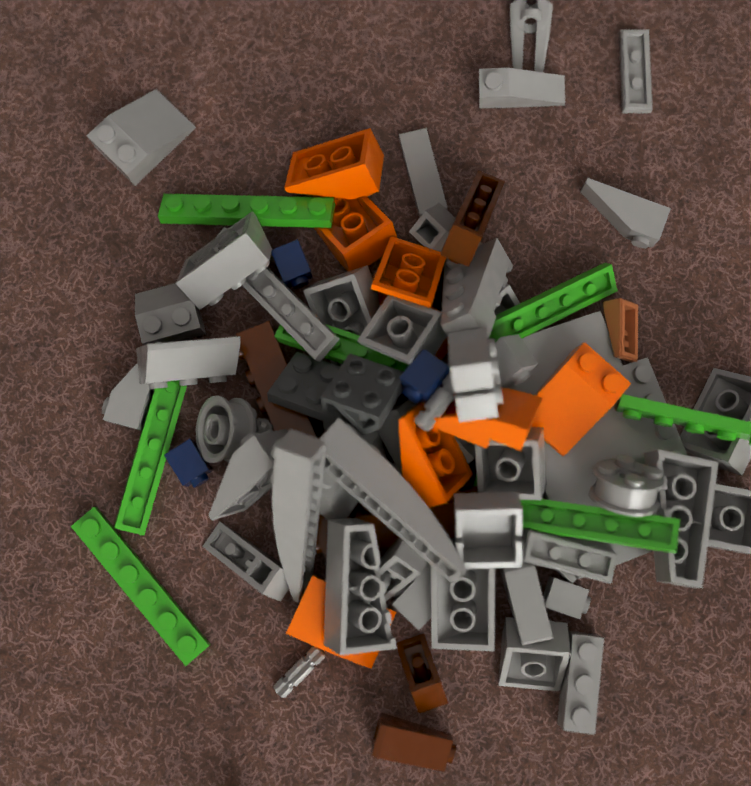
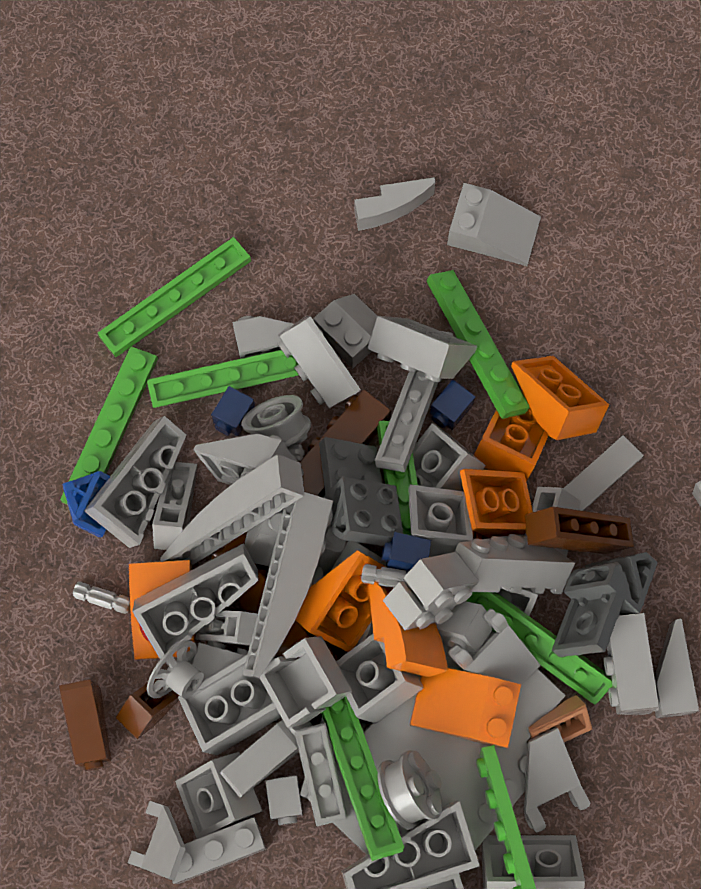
camera: 60 degrees right, 10 degrees down
(44, 460) = (174, 297): none -> bright green plate
(66, 211) = (392, 203): none -> light grey slope
(204, 635) = (79, 495): none -> blue slope
(213, 591) = (133, 489): none -> light grey wedge
(418, 637) = (180, 675): none -> light grey wheel
(539, 234) = (597, 600): none -> dark grey piece
(551, 344) = (501, 656): none -> light grey flag
(563, 728) = (165, 847): none -> light grey flag
(607, 241) = (631, 667): none -> light grey slope
(660, 362) = (549, 776): none -> light grey flag

